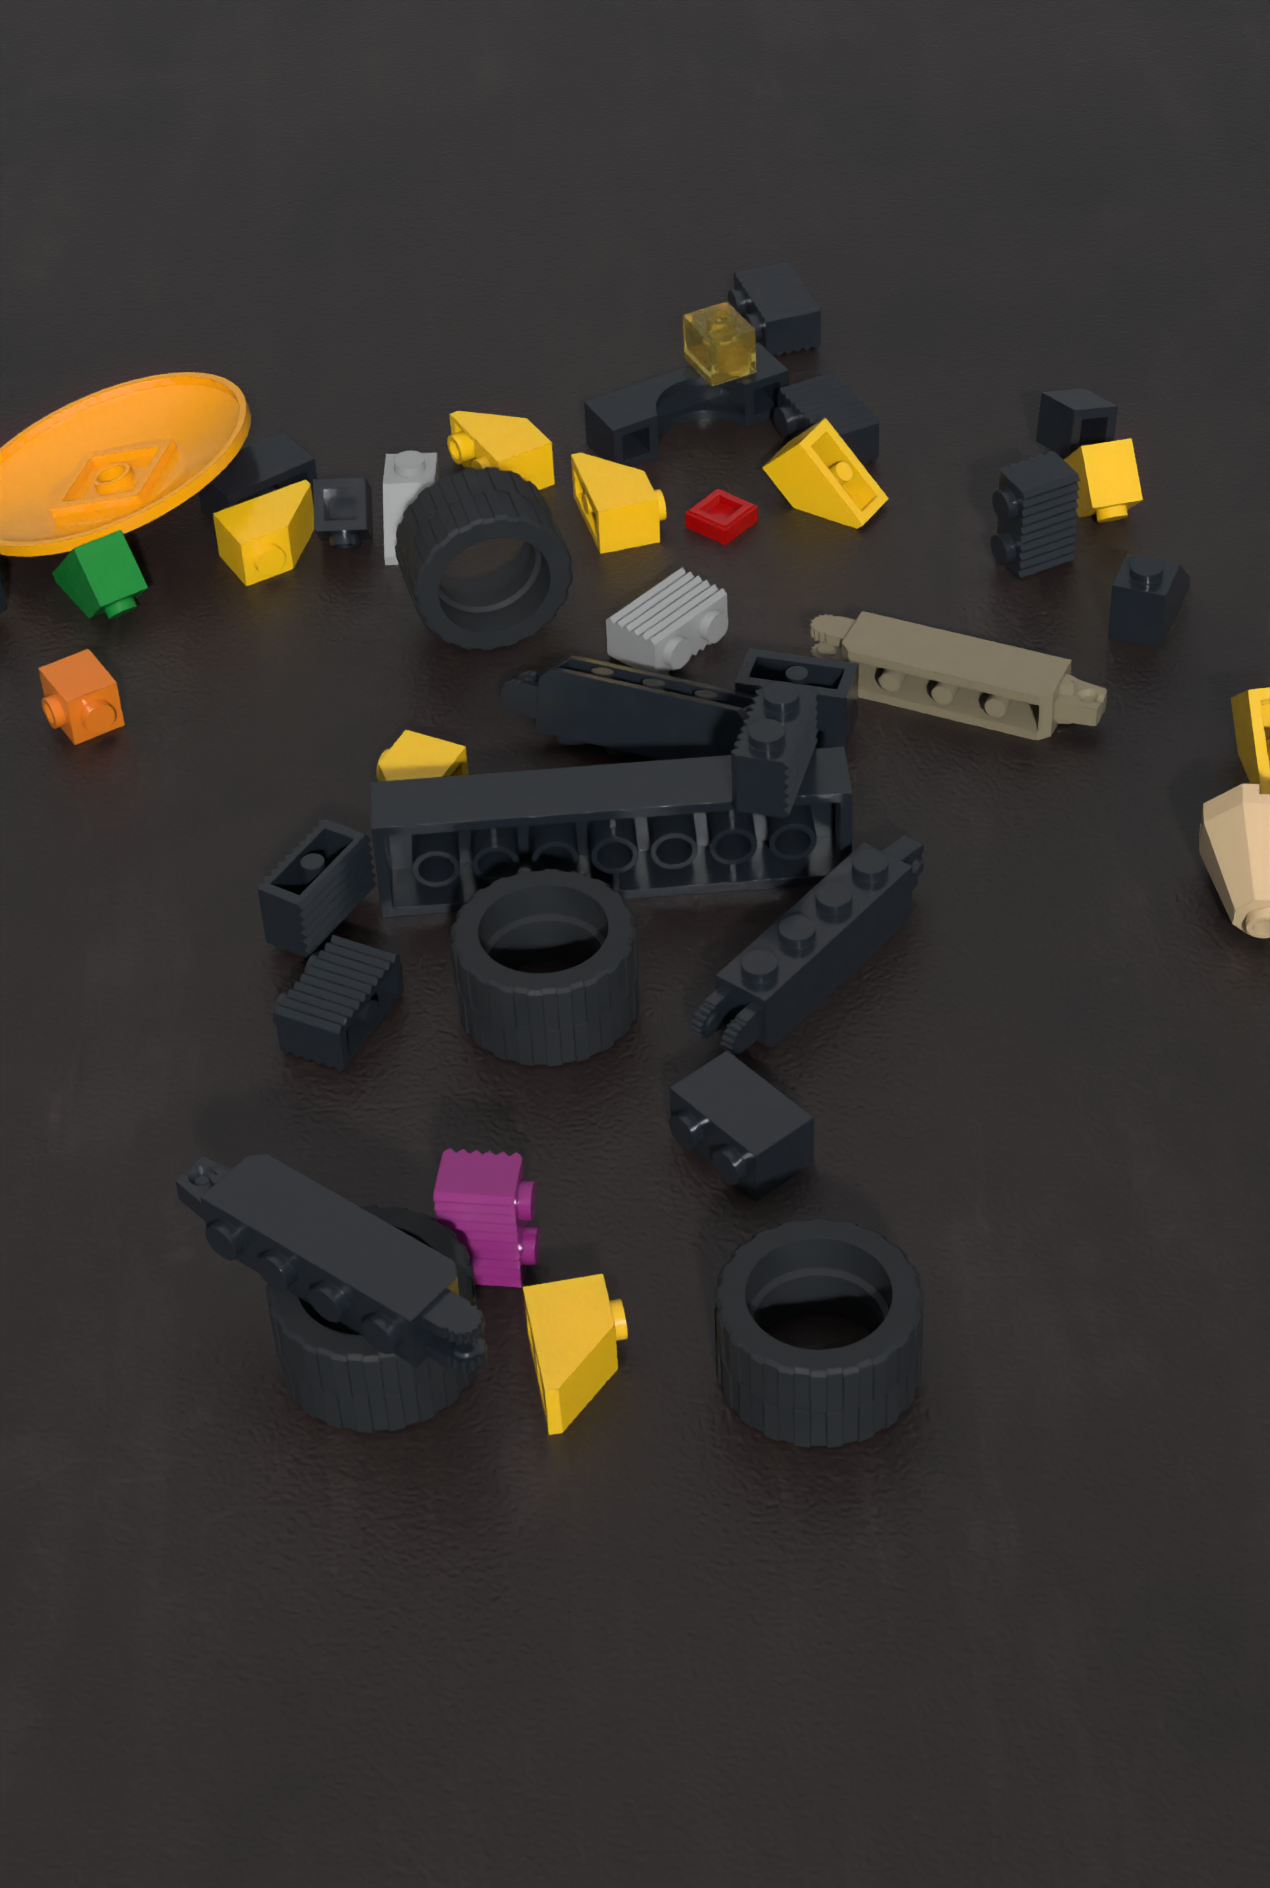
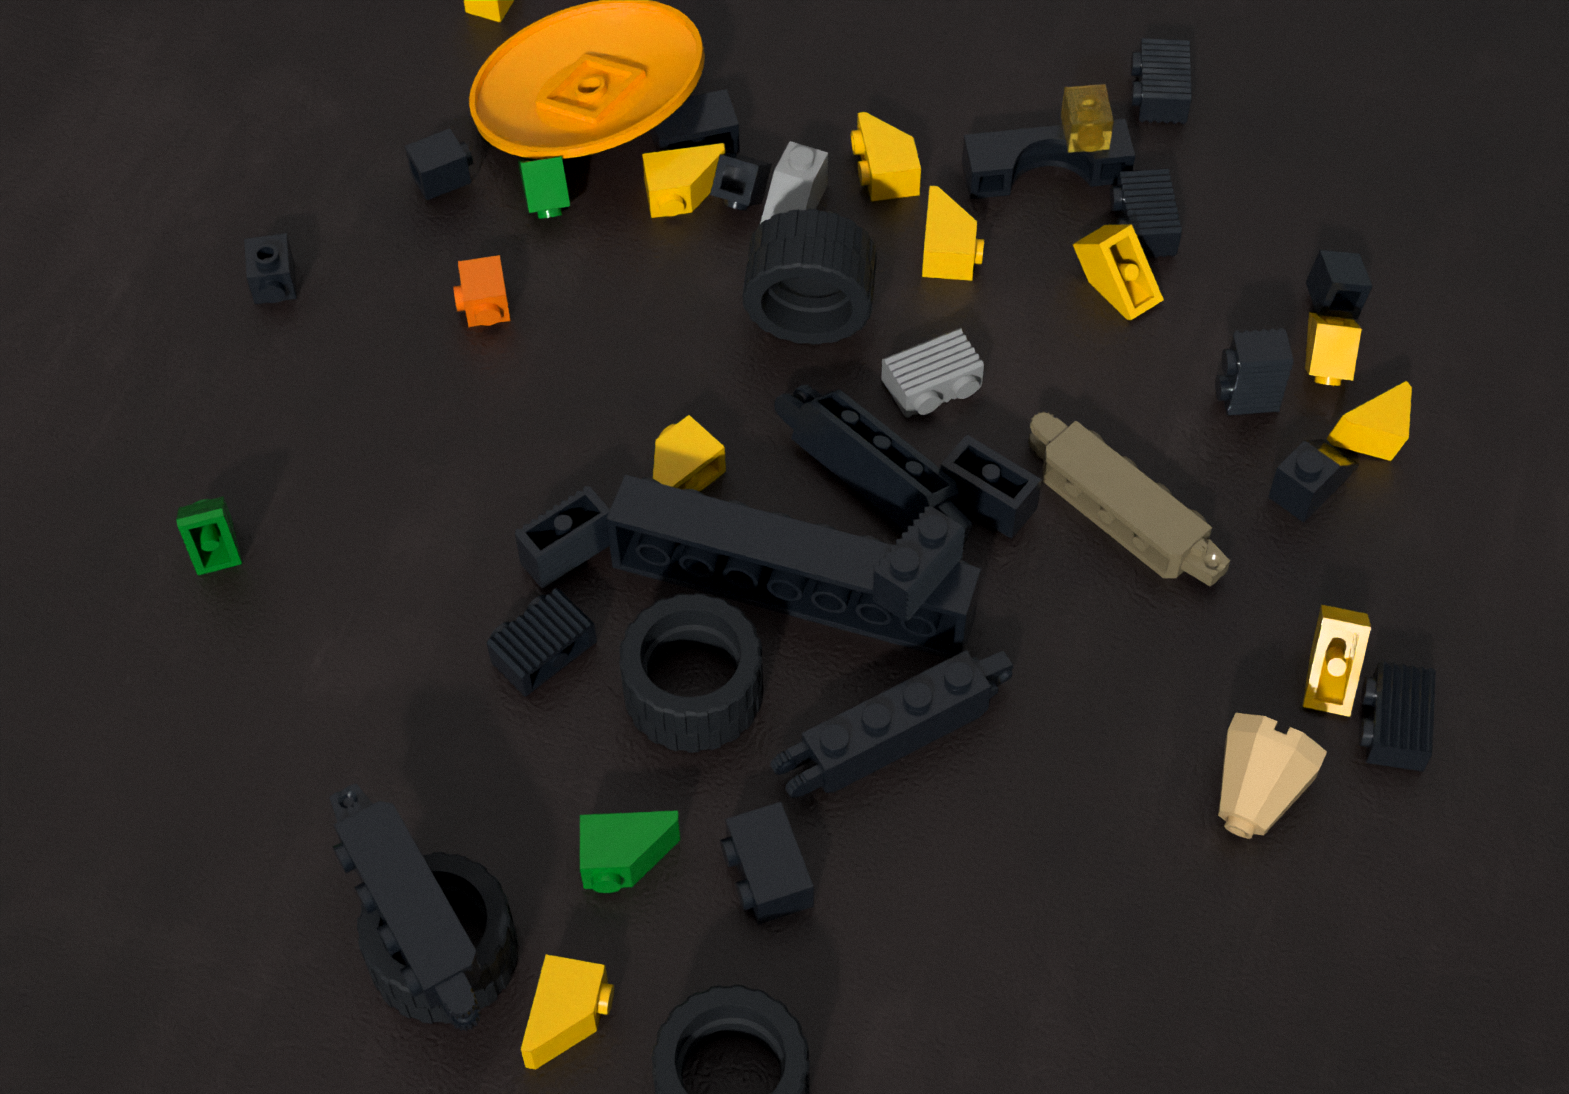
camera: 20 degrees right, 15 degrees up
(489, 1212) = (545, 885): magenta brick -> none
(563, 1157) = (624, 847): none -> green slope
(721, 516) = (1027, 274): red tile -> none
(1193, 530) = (1377, 426): none -> yellow slope

